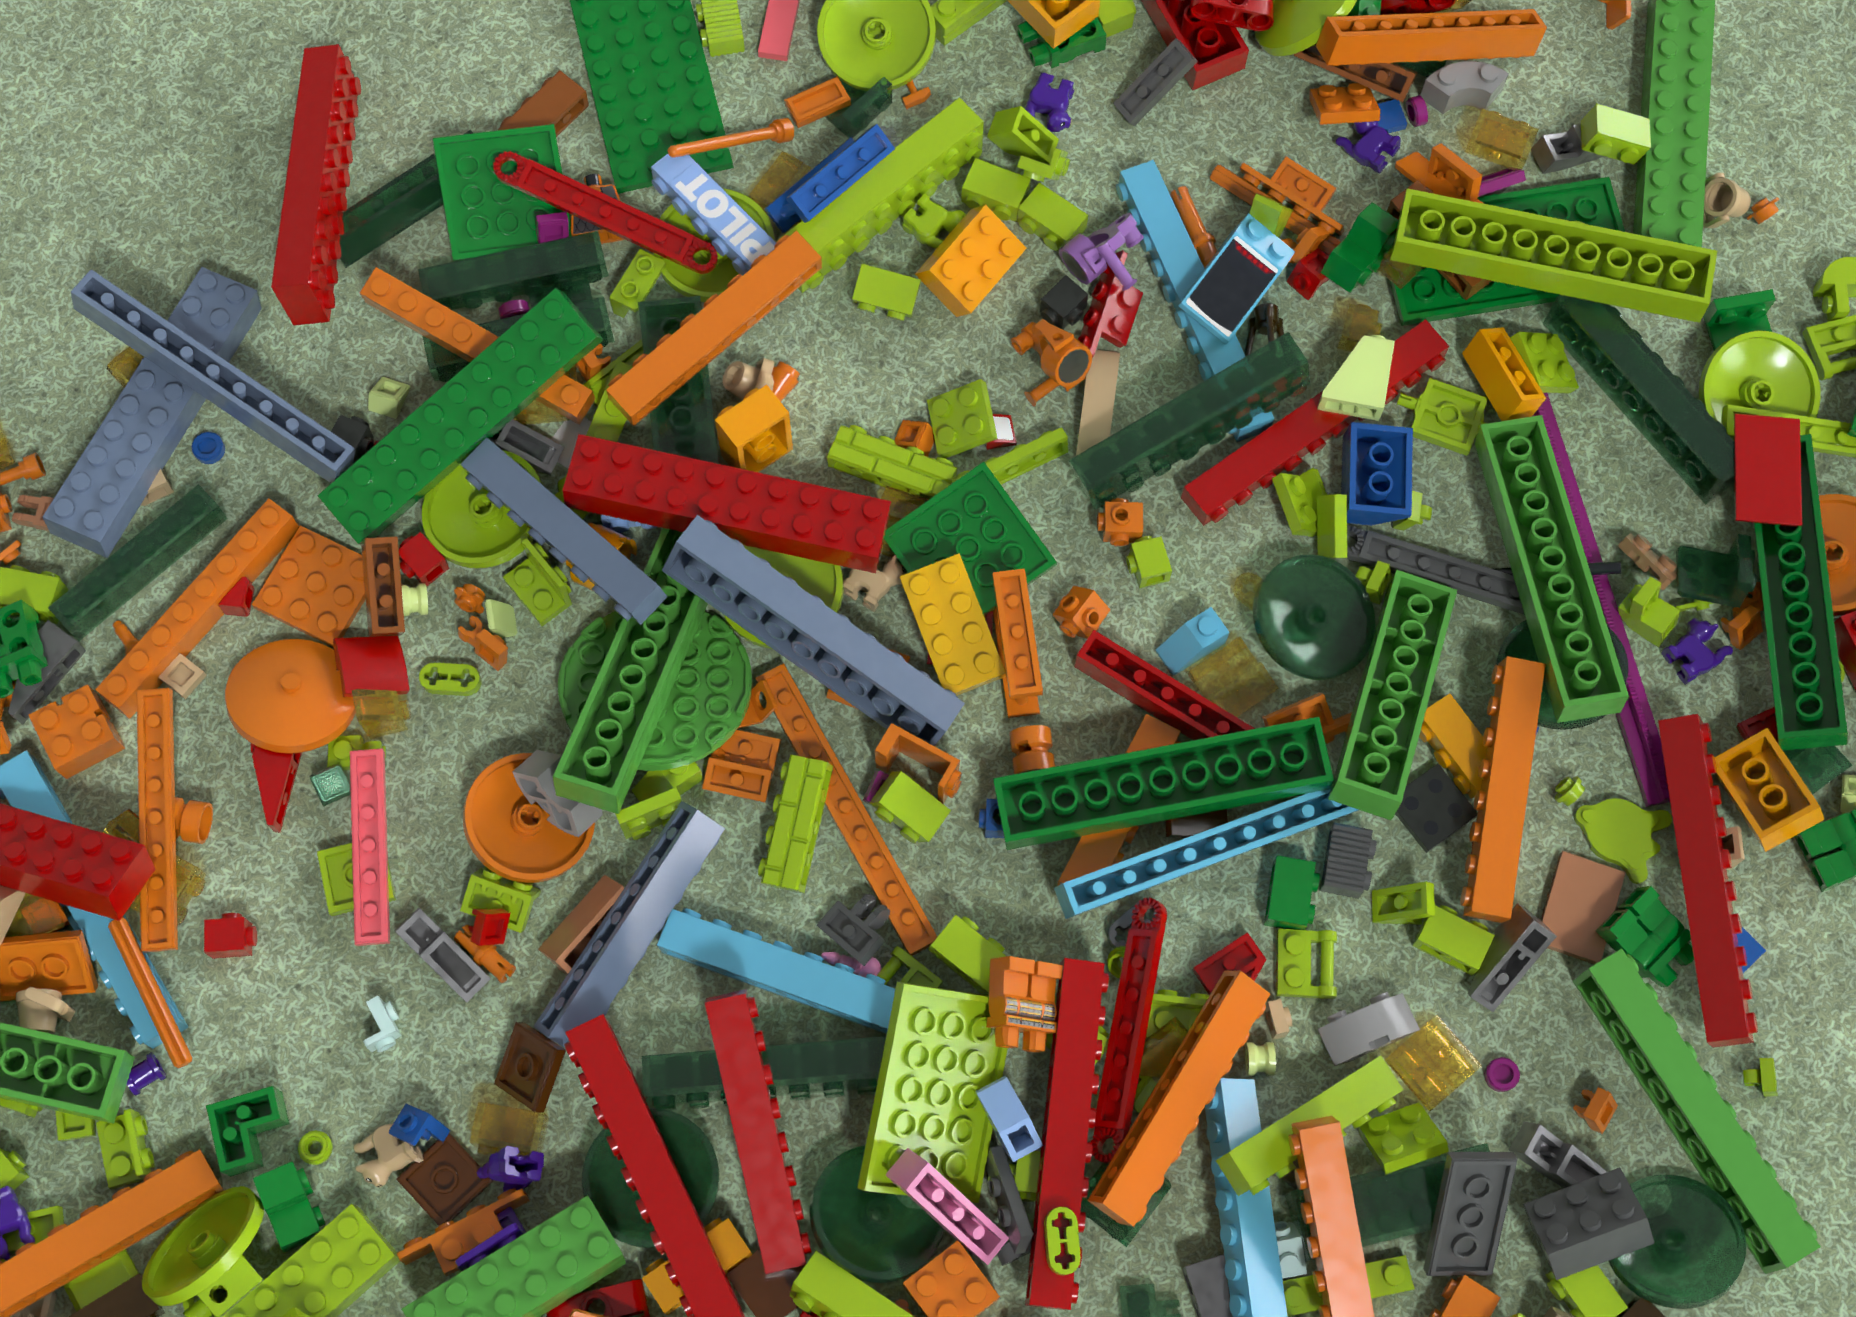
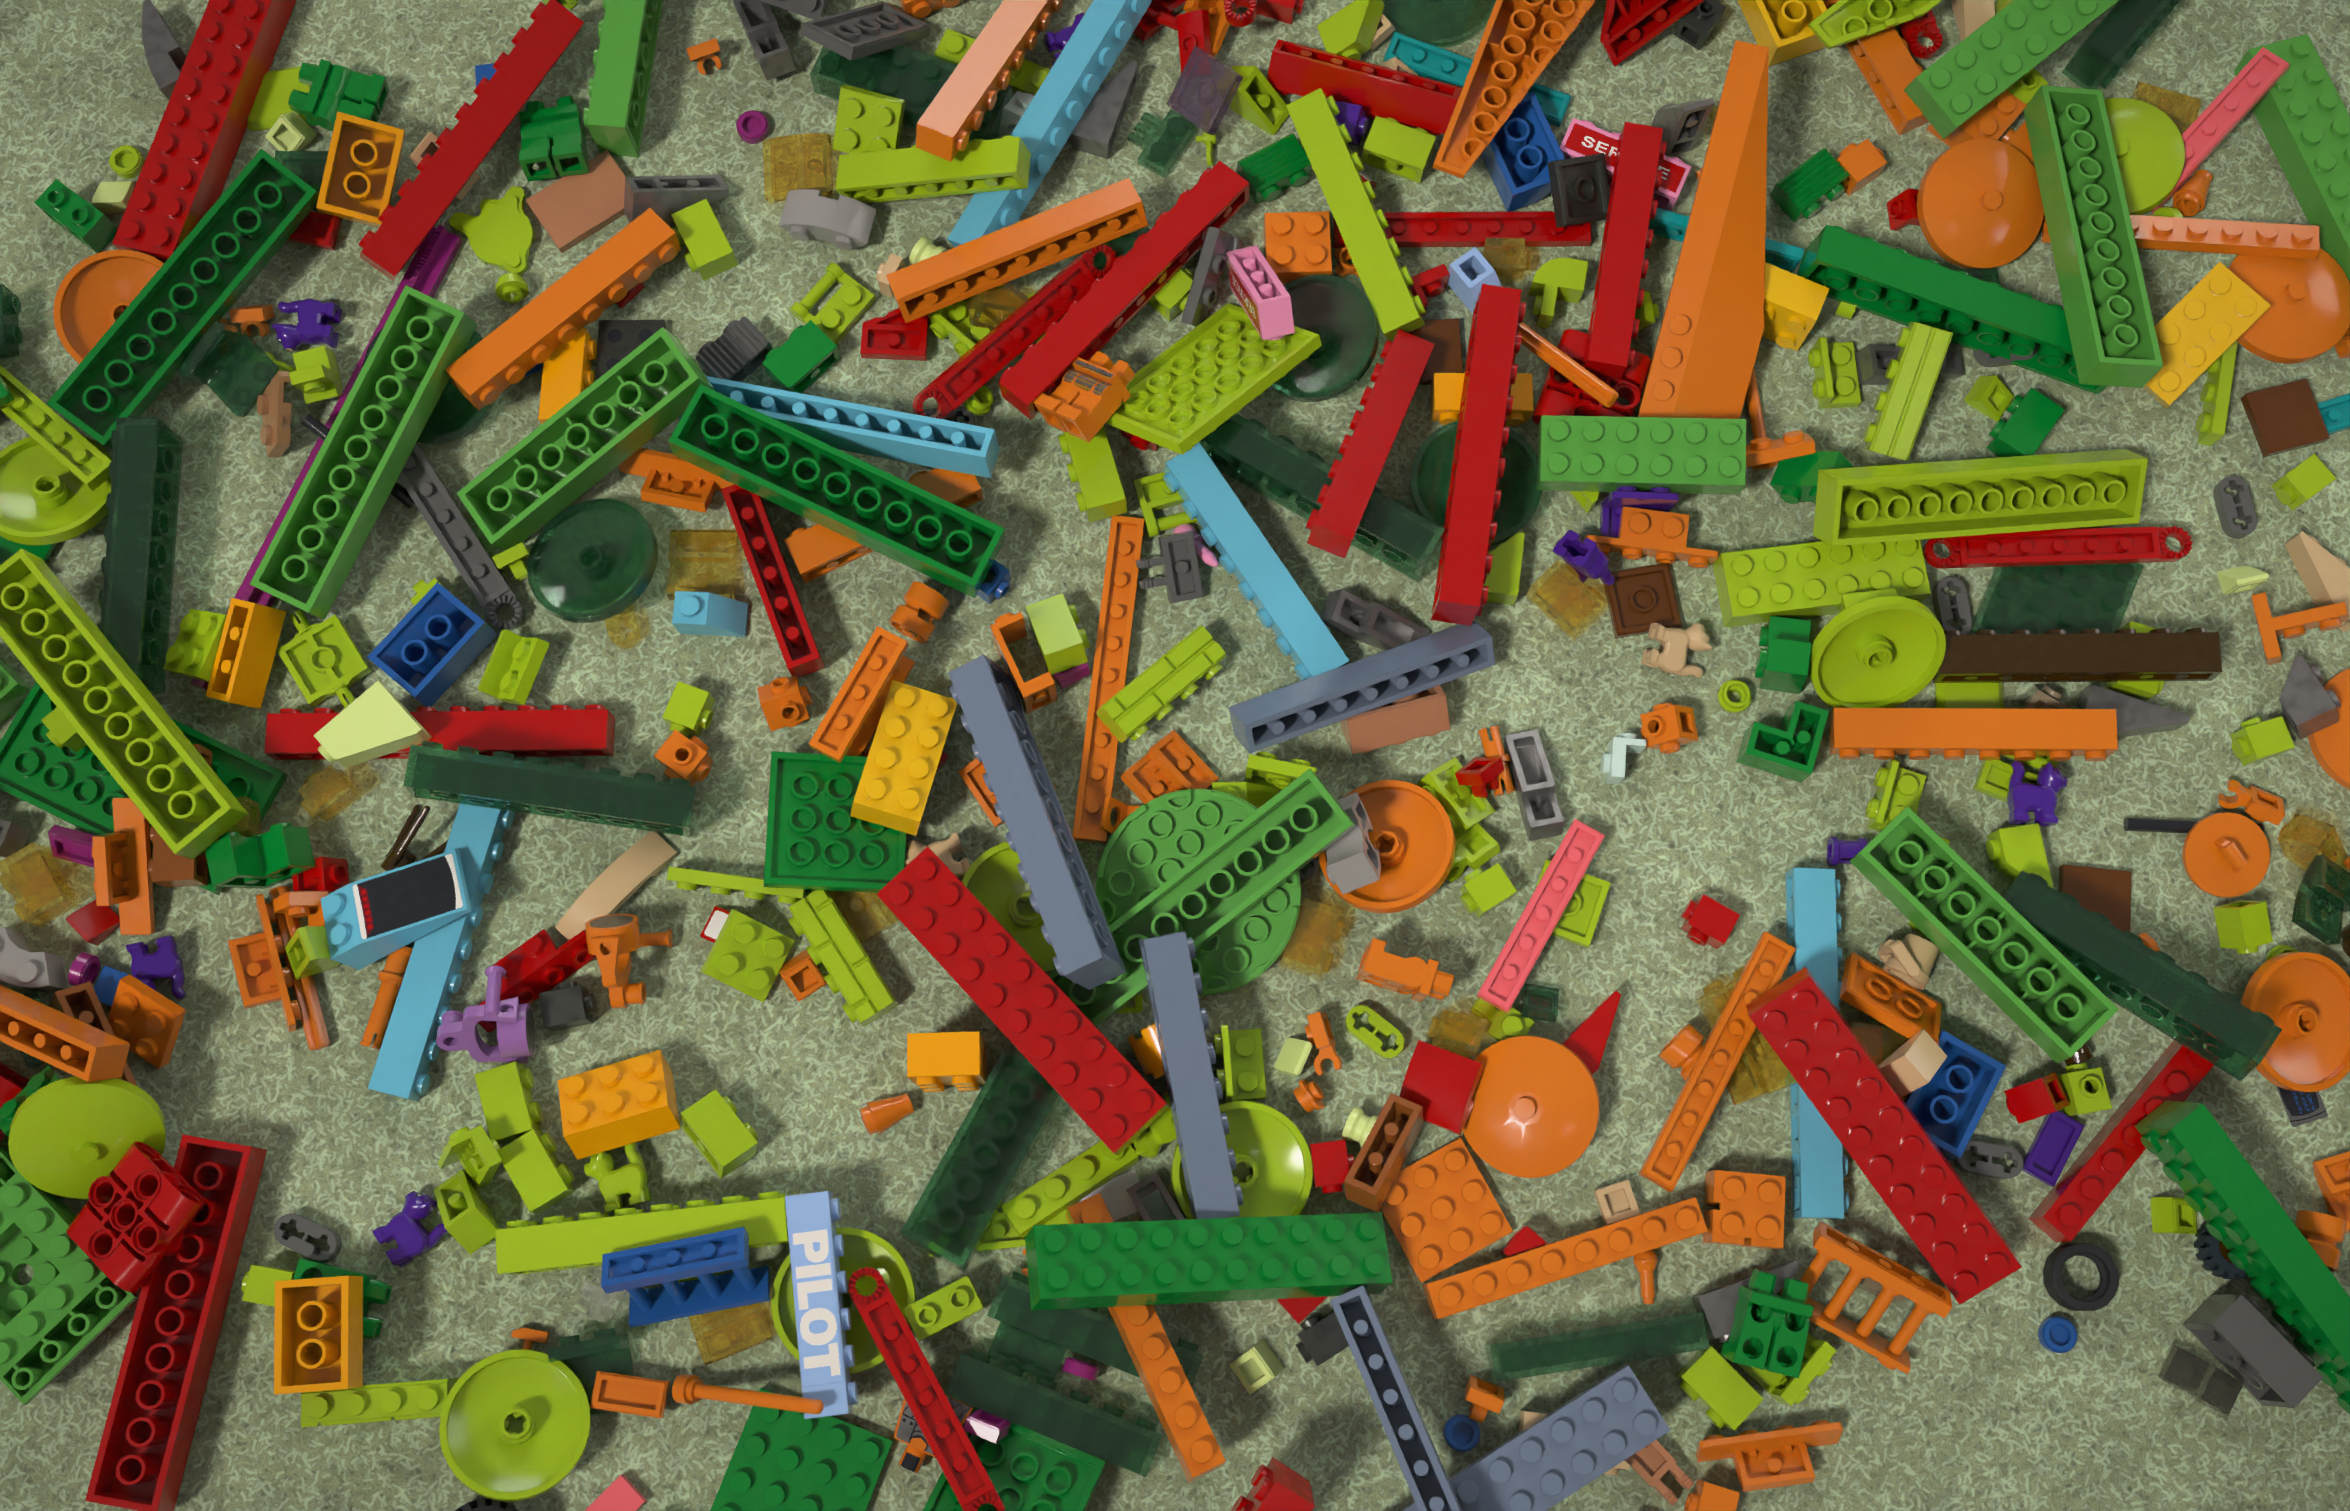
camera: 145 degrees left, 5 degrees up
(150, 993) = (1807, 897): orange axle -> none
(206, 475) = (1483, 1397): none -> orange tile
(358, 1068) = (1668, 727): none -> orange brick
(417, 1124) = (1643, 647): blue bracket -> none
(427, 841) = (1486, 890): none -> lime brick
(452, 727) = (1403, 974): none -> orange hips
(458, 865) = (1472, 849): none -> lime plate
(530, 1067) = (1519, 631): reddish brown tile -> none
(542, 711) = (1312, 938): none -> clear yellow brick
(577, 1117) = (1506, 571): none -> lime slope
(660, 996) = (1369, 621): none -> flat silver slope
(714, 327) = (909, 1181): orange brick -> none
(742, 378) = (911, 1124): tan piece -> none
(1009, 1119) = (1162, 326): light blue slope -> none
(1053, 1241) = (1185, 201): lime beam -> none
(1116, 57) = (311, 1230): none -> dark grey beam
(1155, 82) = (296, 1170): flat silver plate -> none
(1332, 525) = (511, 624): lime slope -> none
(1403, 904) = (719, 290): lime slope -> none
(1447, 136) = (94, 922): none -> red slope
(1767, 470) = (111, 400): red piece -> none

